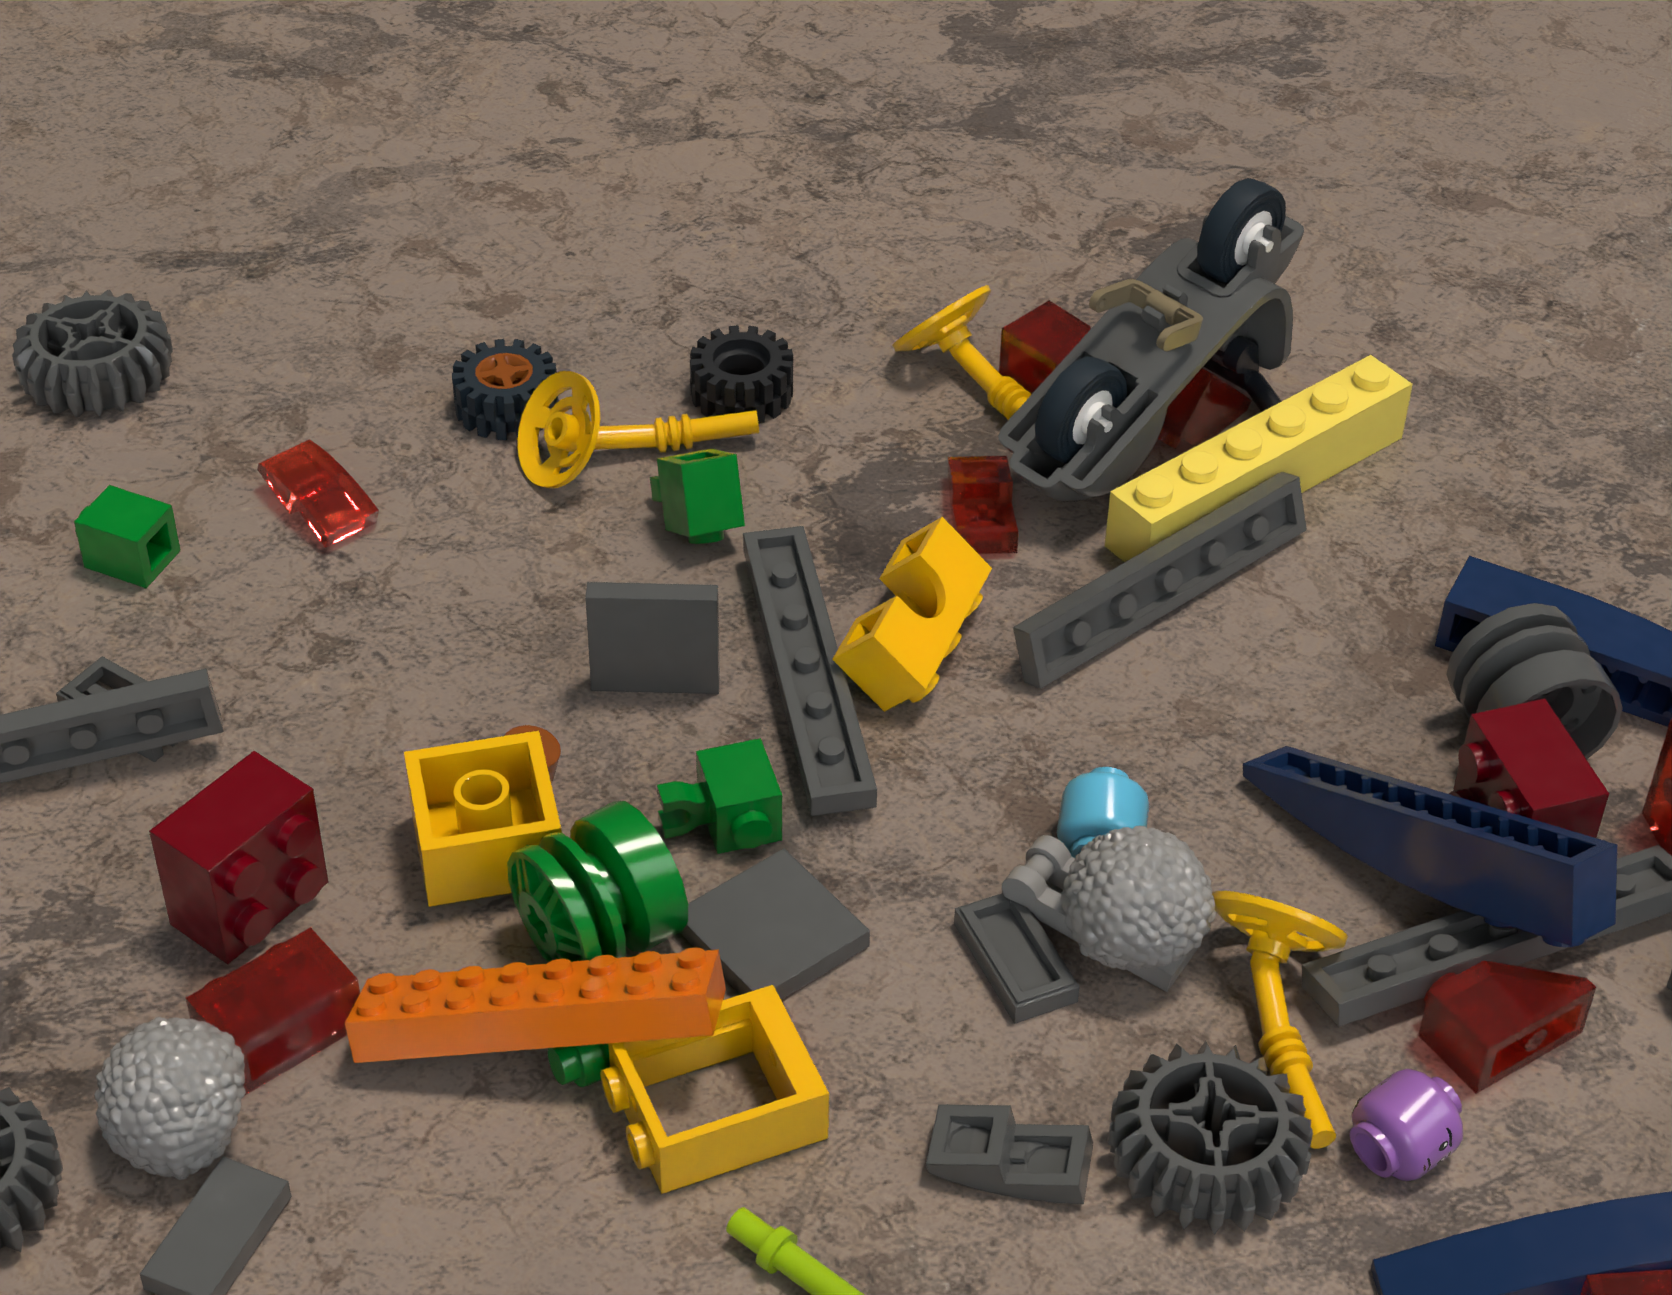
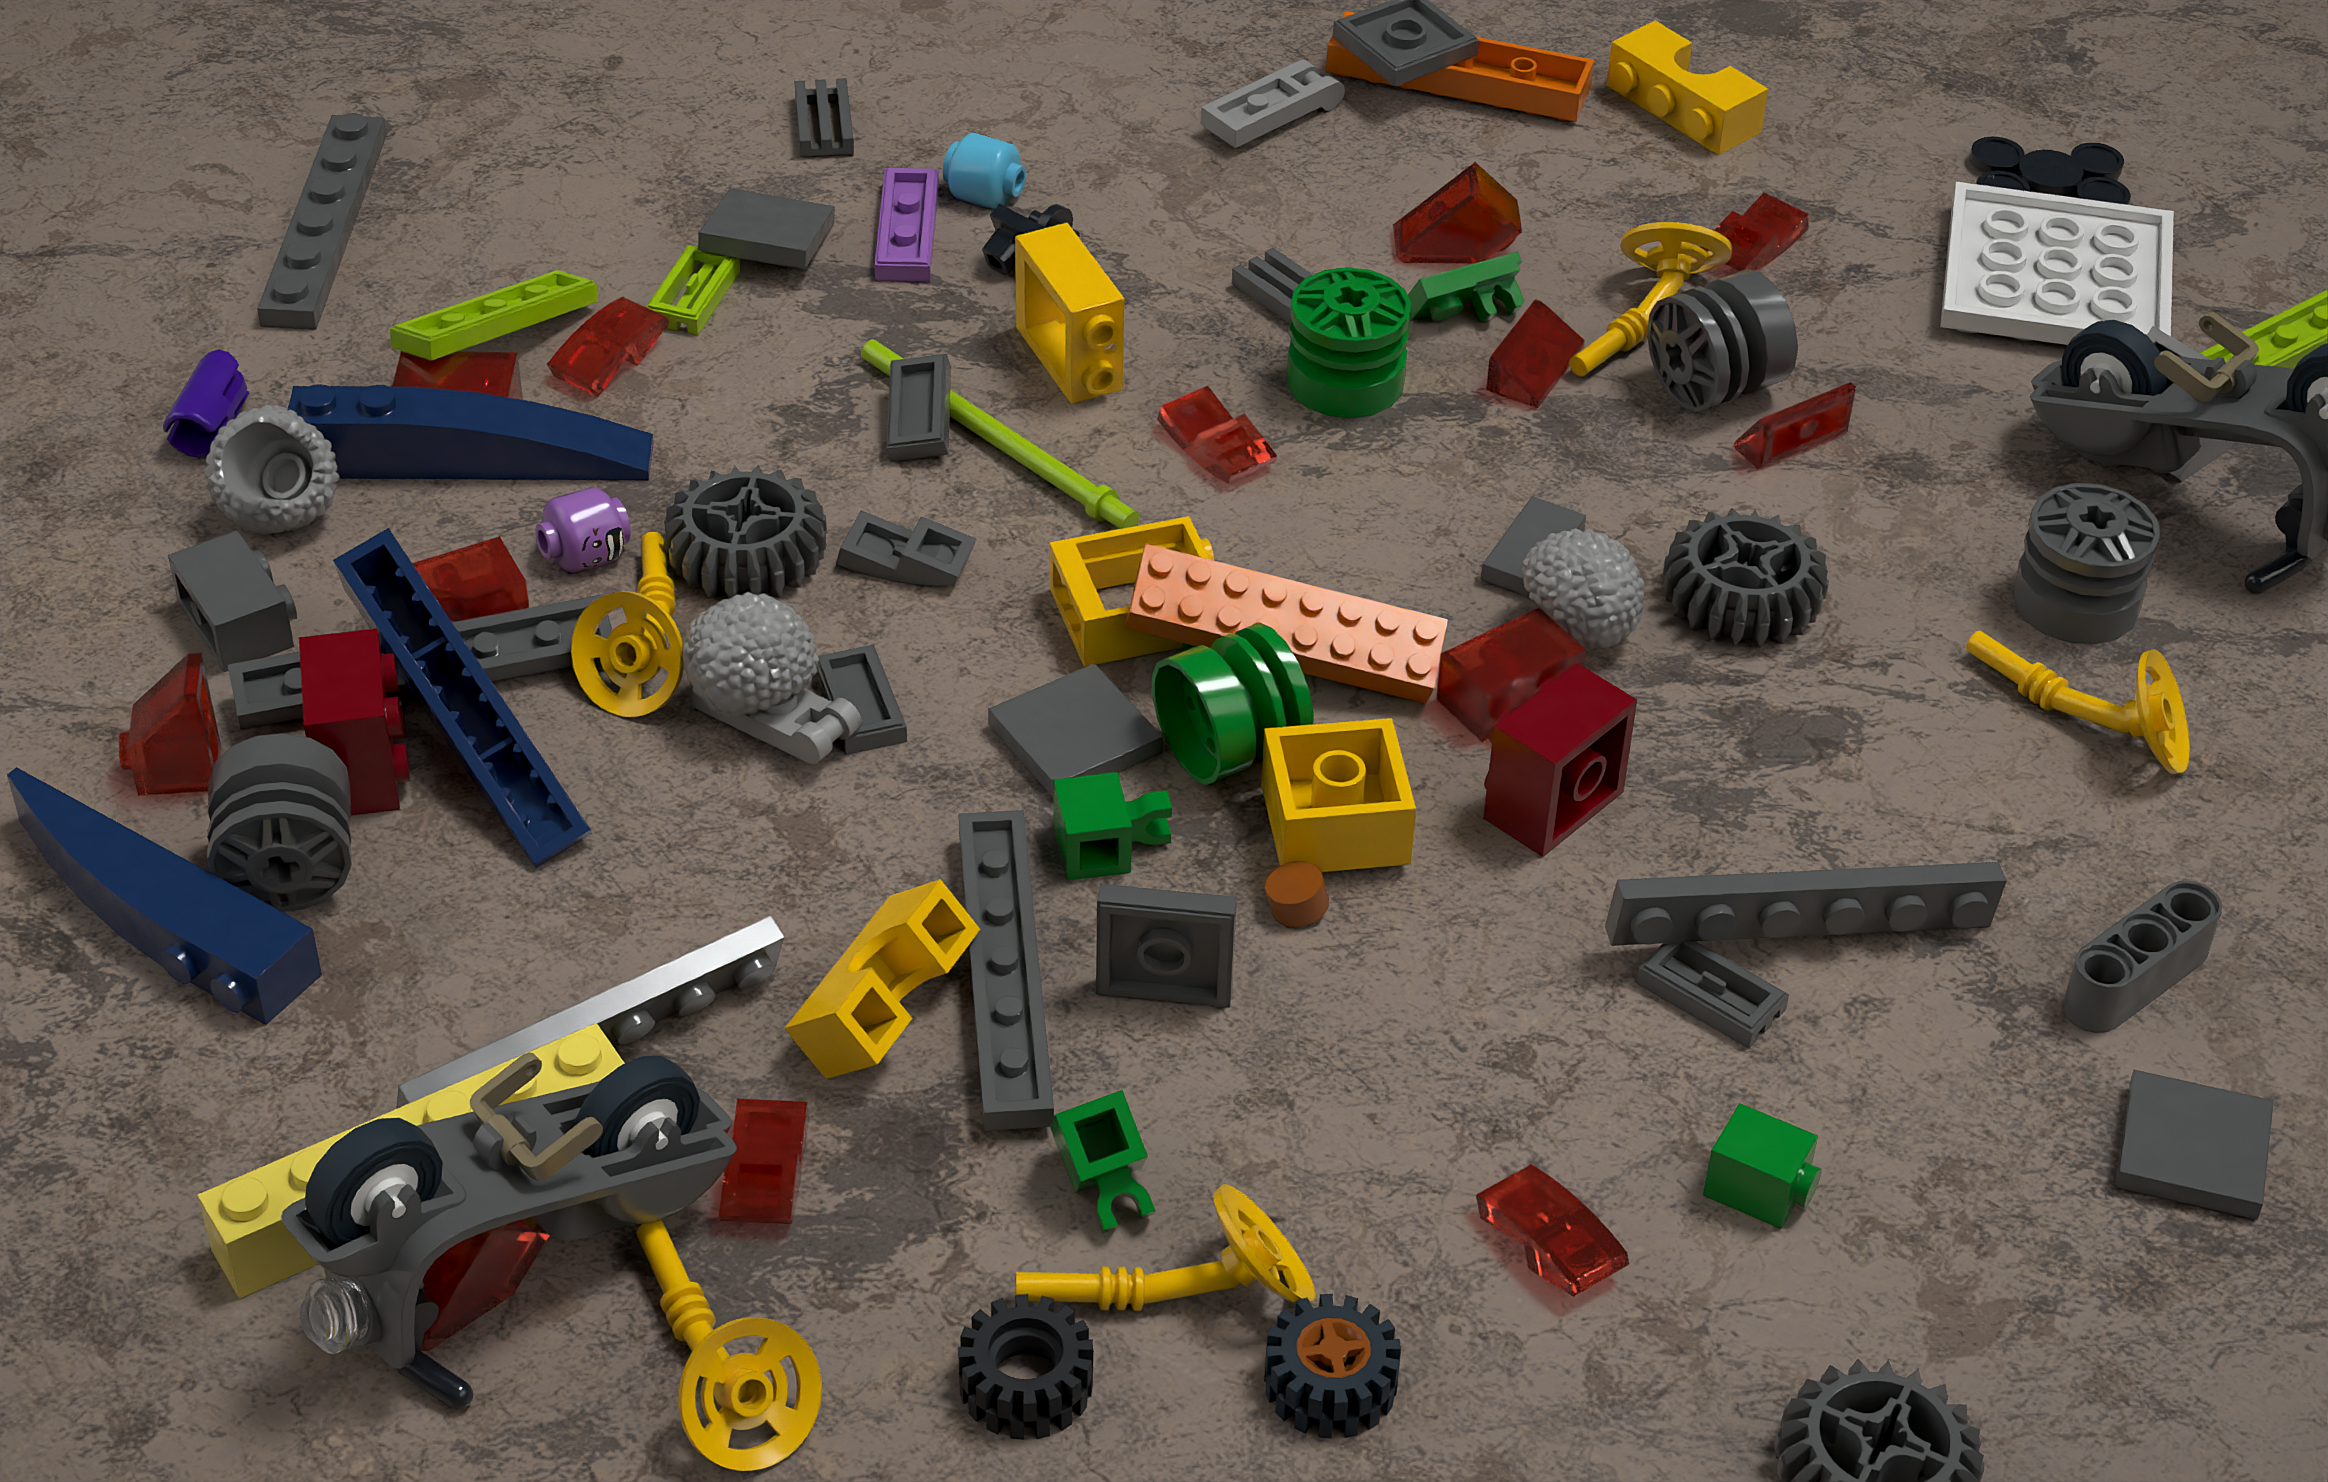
camera: 175 degrees left, 0 degrees up
(1038, 344) = (615, 1353): clear red slope -> none
(1098, 804) = (749, 771): medium azure head -> none

